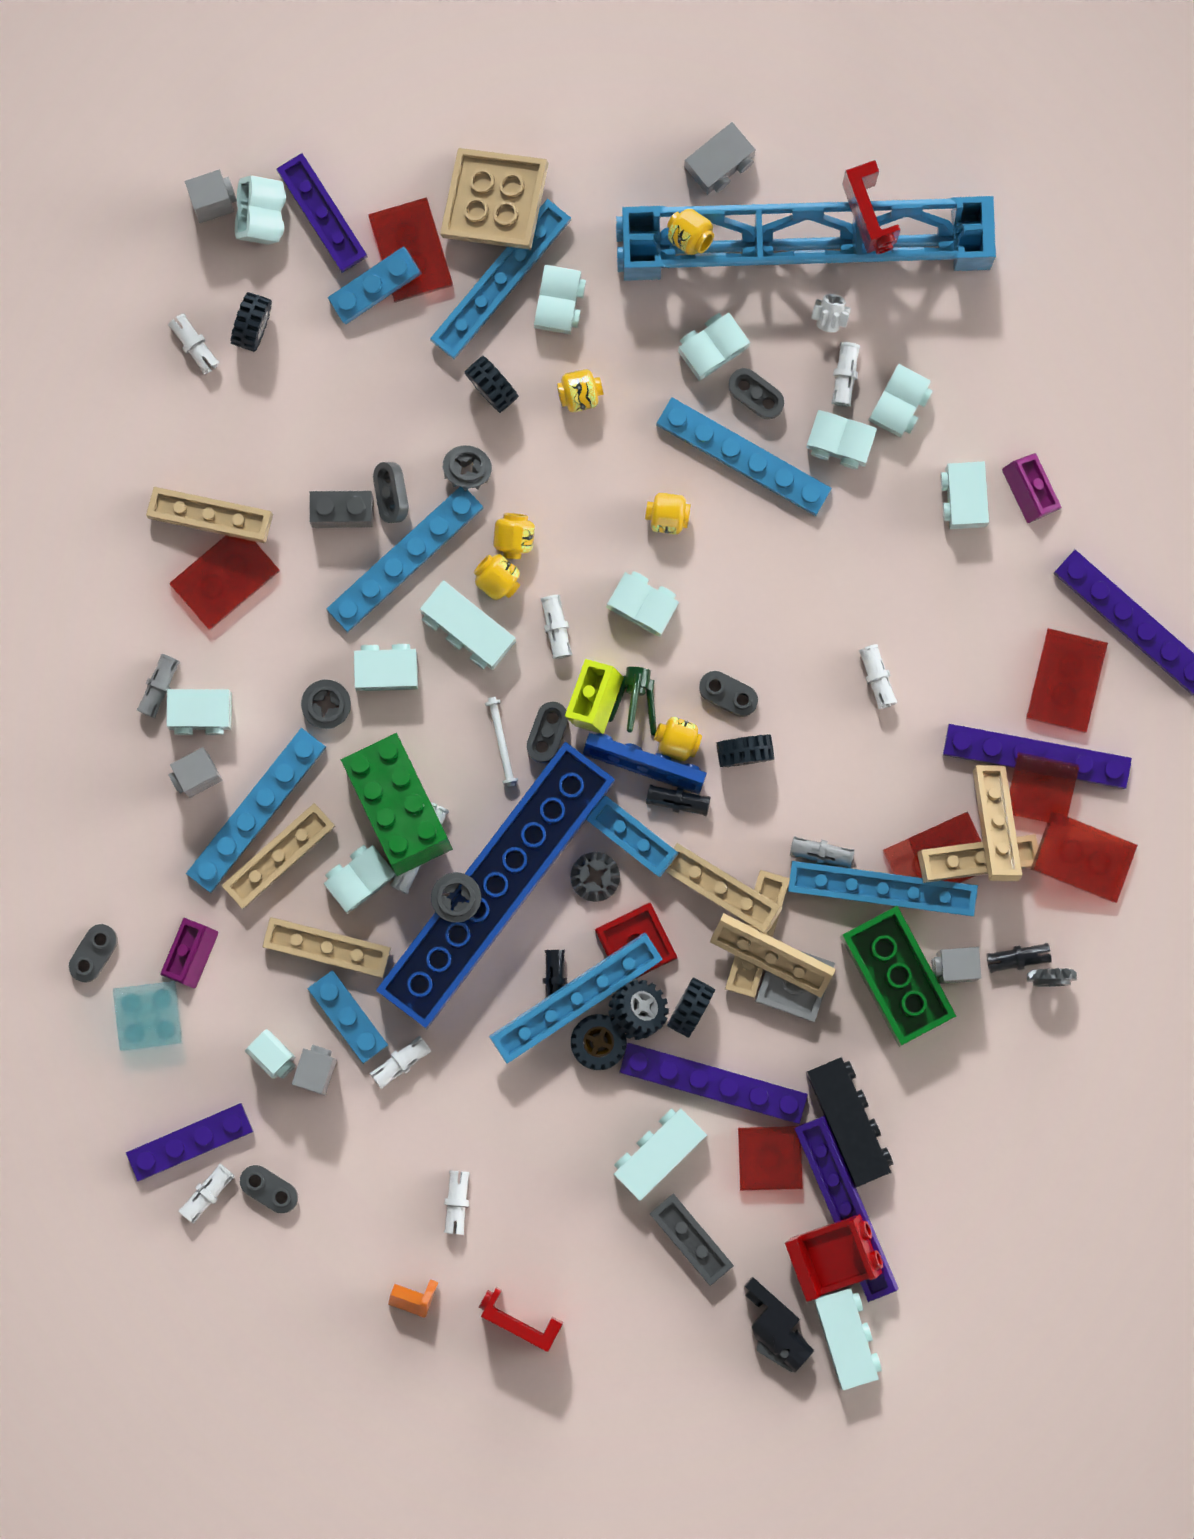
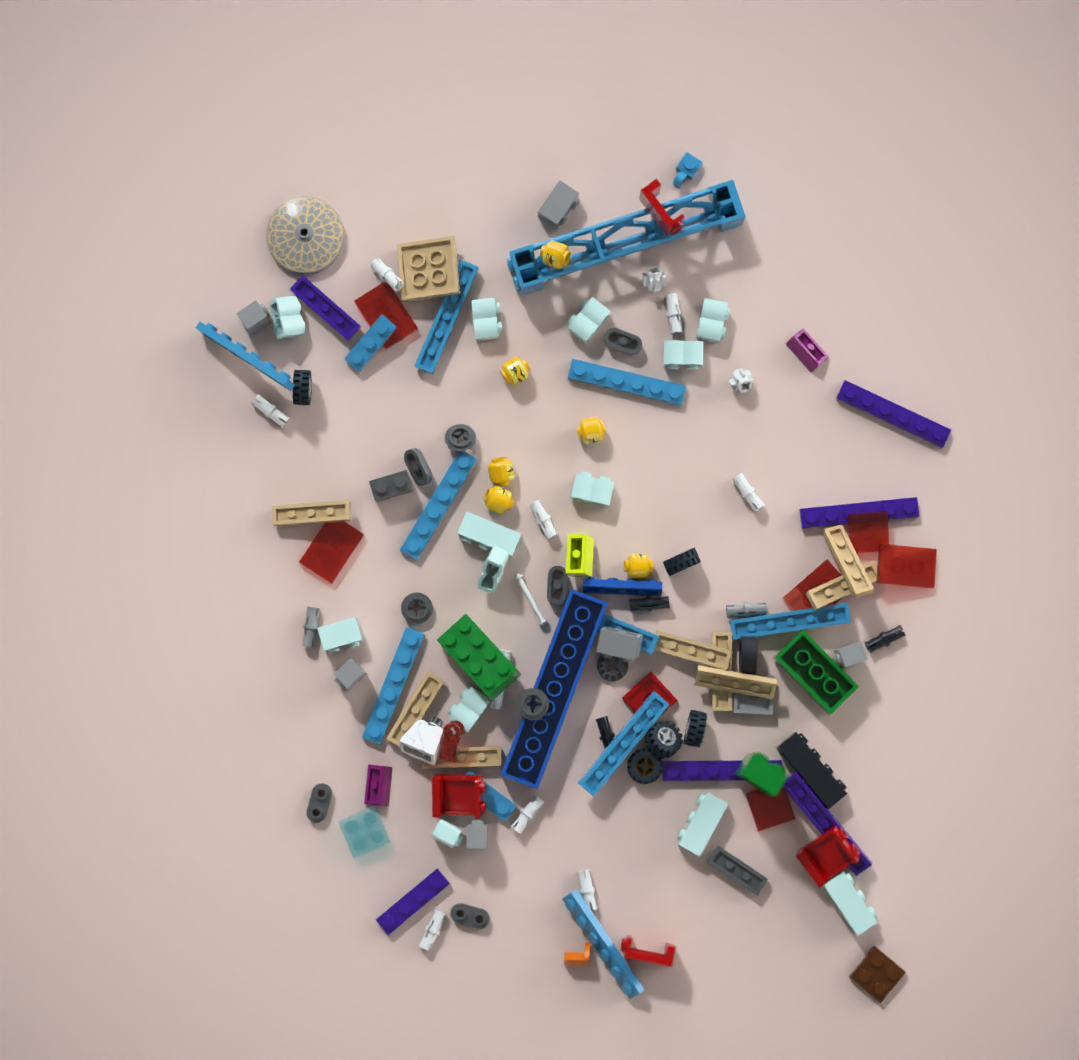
camera: 15 degrees left, 0 degrees up
(188, 256) = (251, 358): none -> dark azure plate
(277, 905) = (424, 740): none -> white torso
(304, 1002) = (458, 795): none -> red panel
(318, 917) = (451, 740): none -> clear red connector
(331, 121) = (310, 252): none -> light grey dish
(385, 668) = (447, 575): light aqua brick -> none
(429, 189) = (387, 274): none -> white pin
(456, 679) = (493, 569): none -> light aqua brick
(456, 1290) = (603, 944): none -> dark azure plate
(491, 384) = (460, 382): black wheel -> none
(614, 846) = (619, 643): none -> light grey brick
(637, 681) = (602, 538): dark green plant -> none
(727, 696) = (660, 530): dark grey plate -> none
(768, 1102) = (761, 774): none -> green brick
(775, 1330) = (805, 910): black plate -> none
(803, 920) = (748, 655): none -> black tyre
(856, 1458) = (877, 974): none -> reddish brown plate
(917, 504) = (741, 380): none -> white gear
(931, 159) = (687, 168): none -> dark azure plate
(966, 495) = (769, 366): light aqua brick -> none
(1051, 977) = (909, 645): dark grey gear -> none
(1066, 680) = (863, 461): clear red tile -> none

